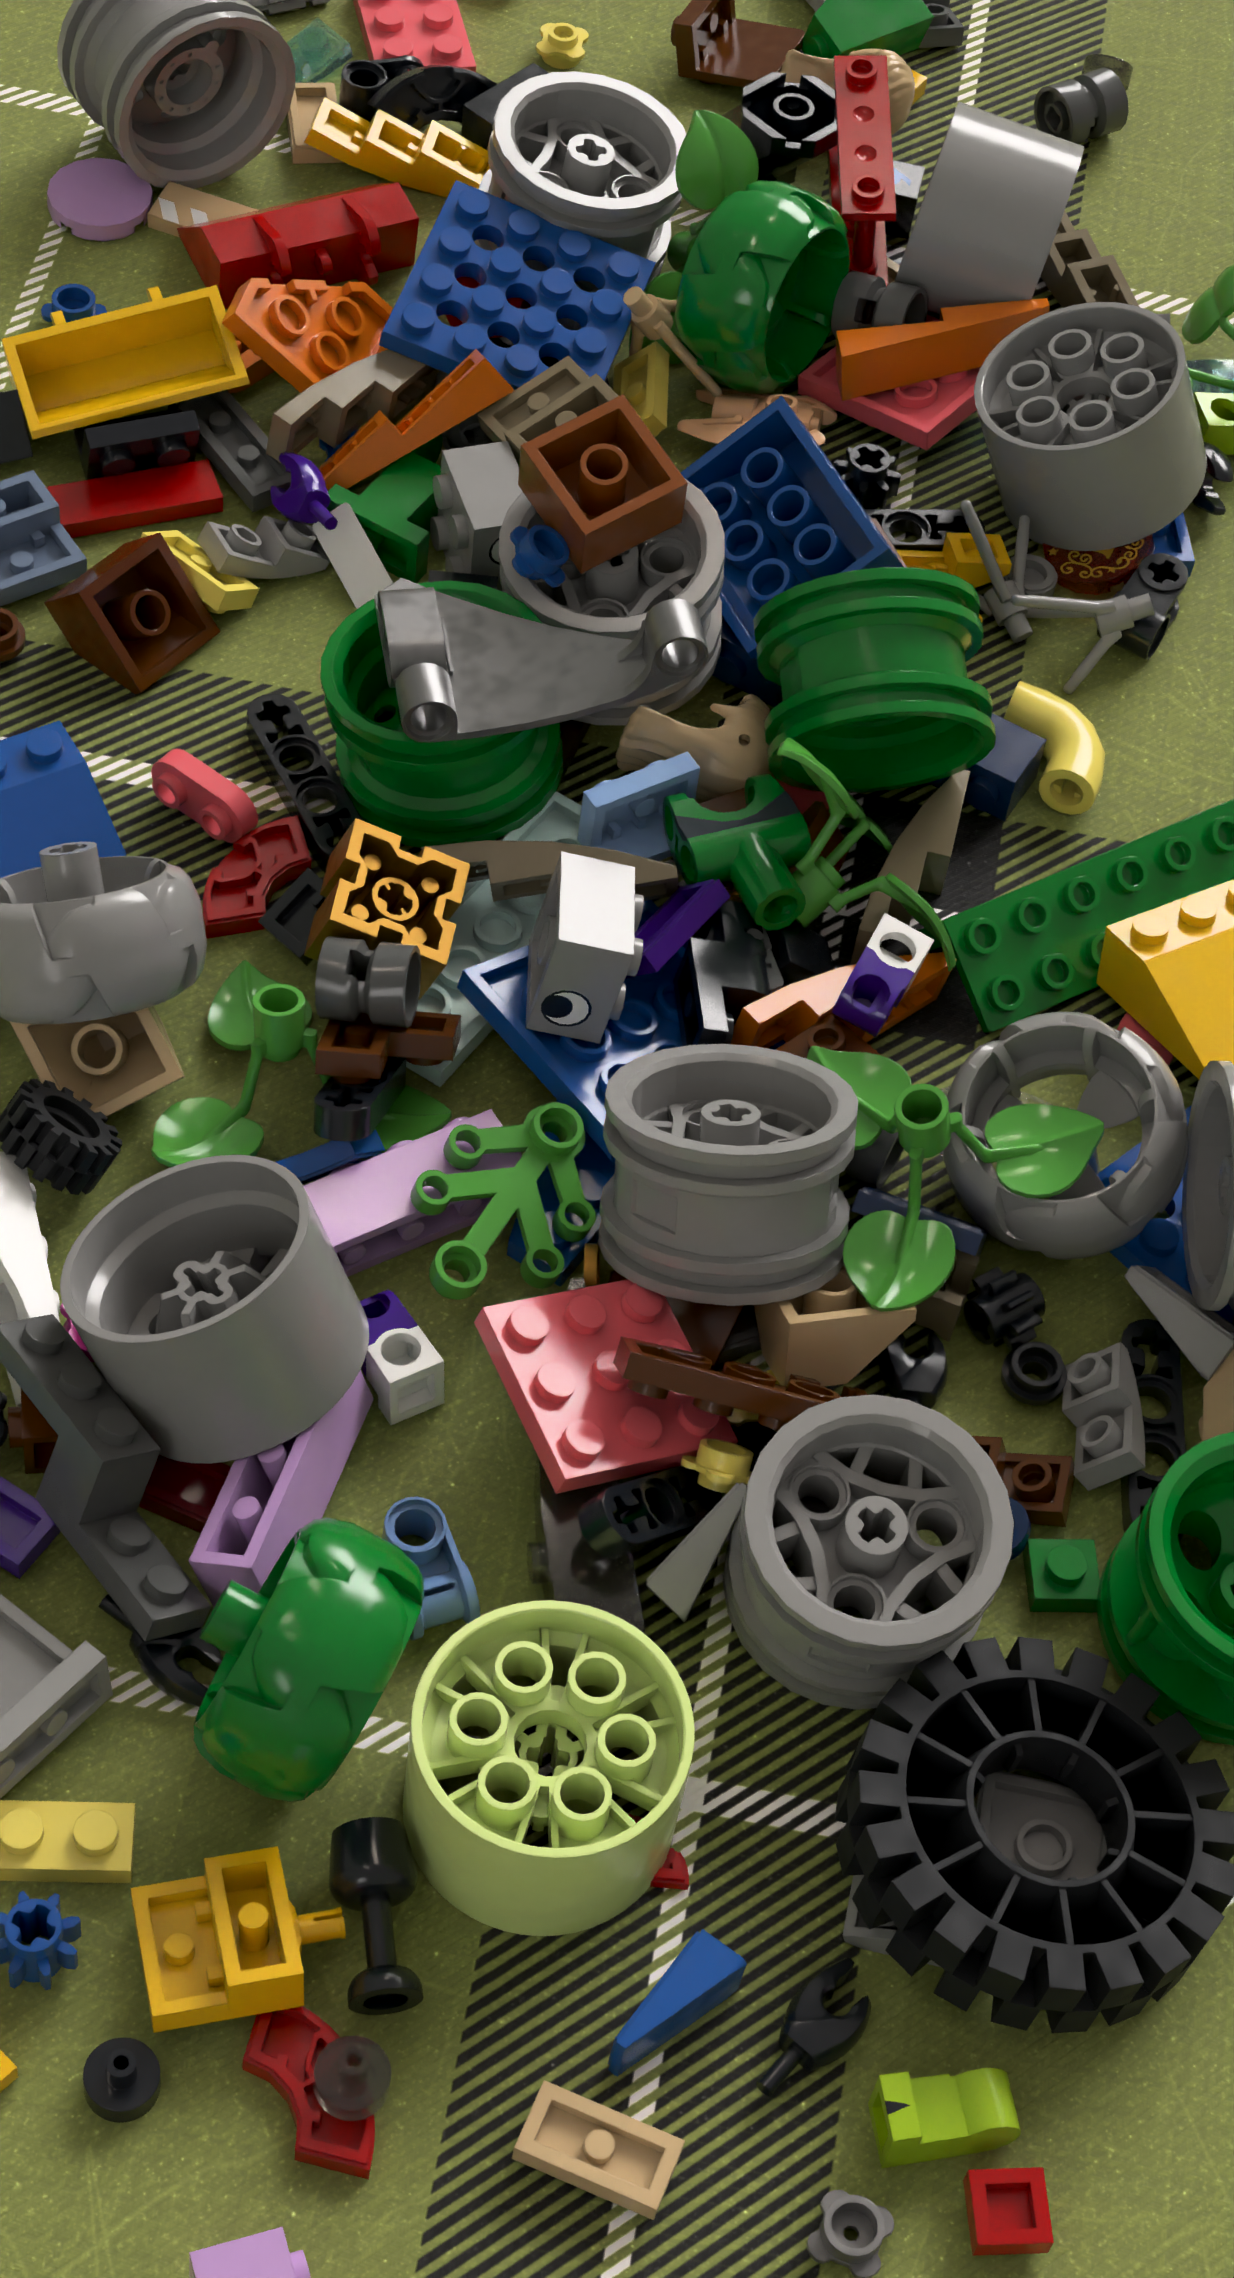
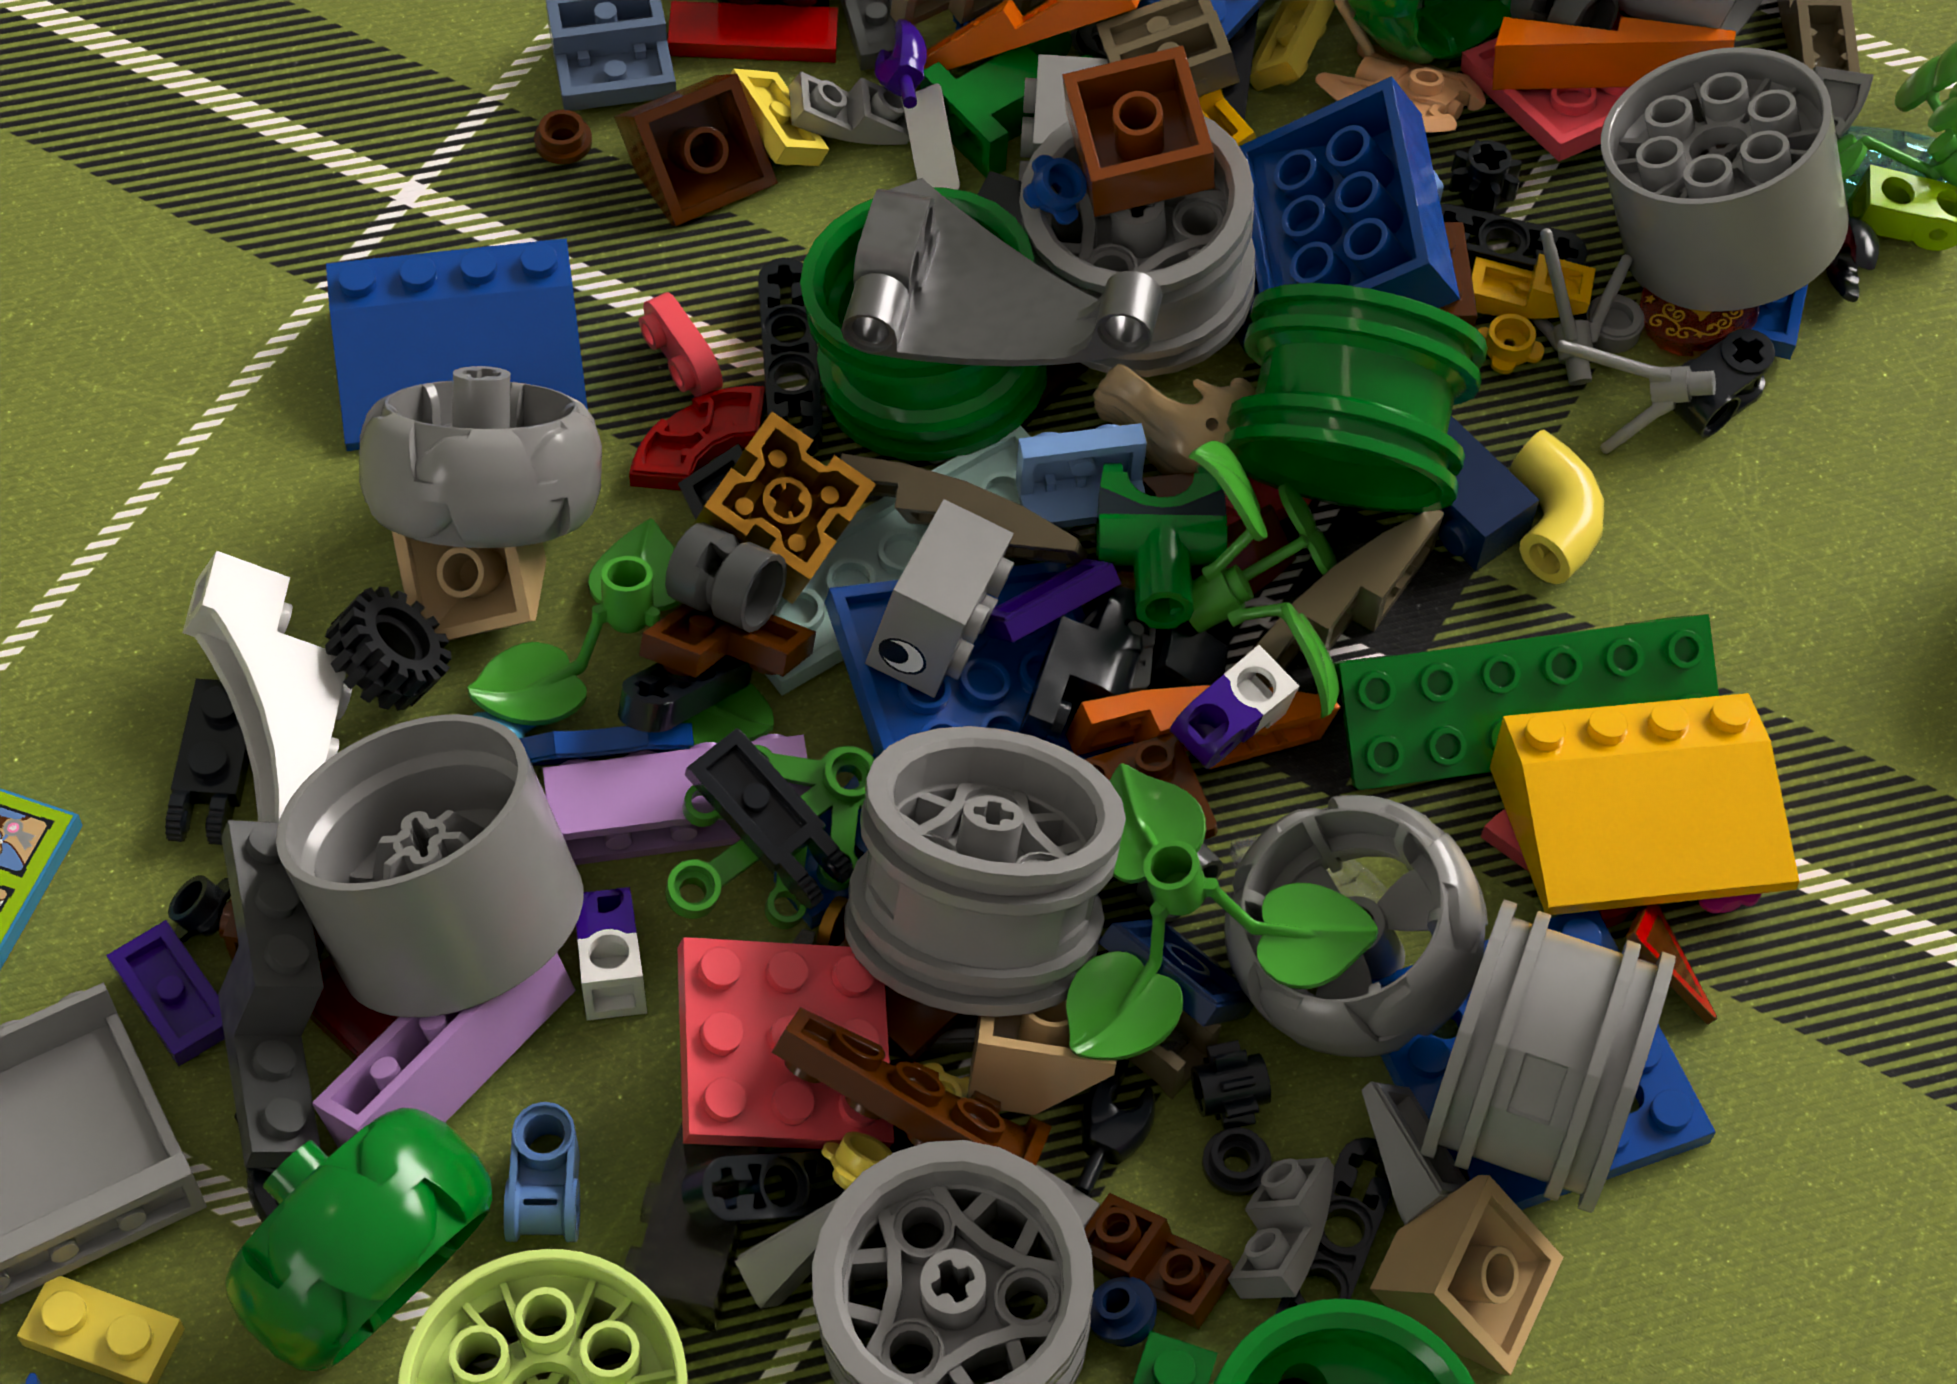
camera: 25 degrees right, 5 degrees up
(506, 1184) = (767, 814): none -> black hinge

